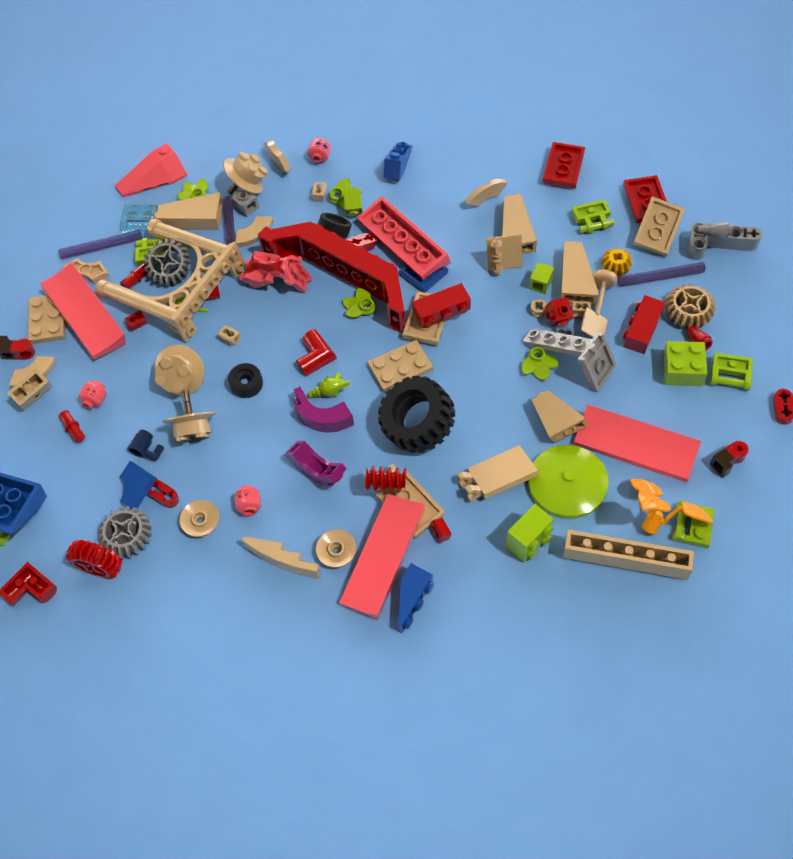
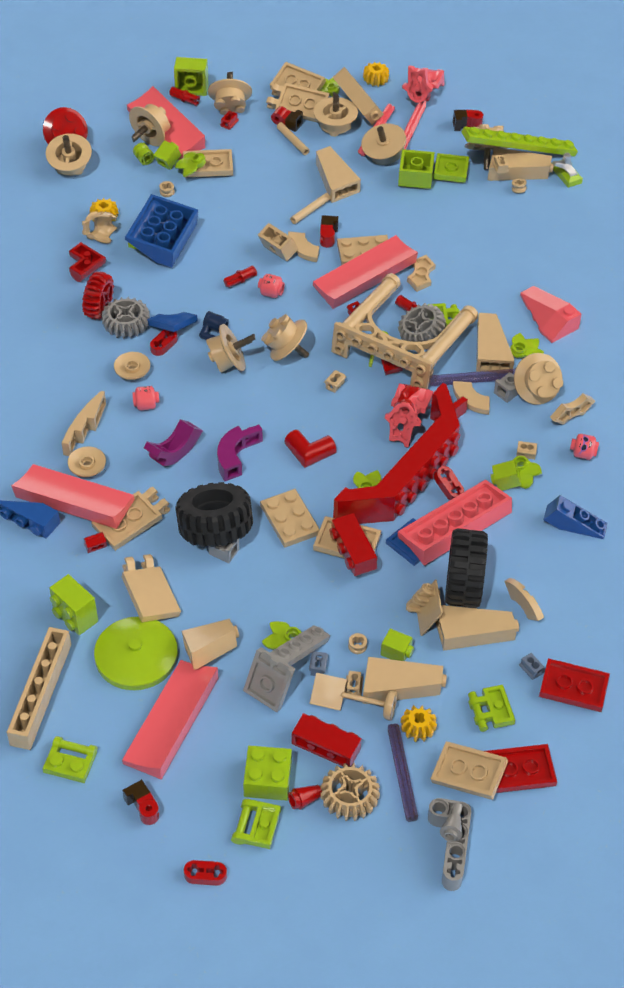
camera: 85 degrees right, 10 degrees down
(100, 244) = (453, 278): clear purple axle -> none
(136, 213) = (492, 302): clear light blue plate -> none
(245, 390) = (277, 385): black tyre -> none
(329, 386) = (266, 459): lime piece -> none
(335, 224) = (480, 453): black tyre -> none
(385, 479) = (145, 489): red piece -> none
(472, 202) = (466, 568): none -> black tyre
(547, 191) = (532, 671): none -> sand blue piece
(559, 312) = (343, 655): red brick -> none
(649, 501) = (115, 715): light orange plant -> none

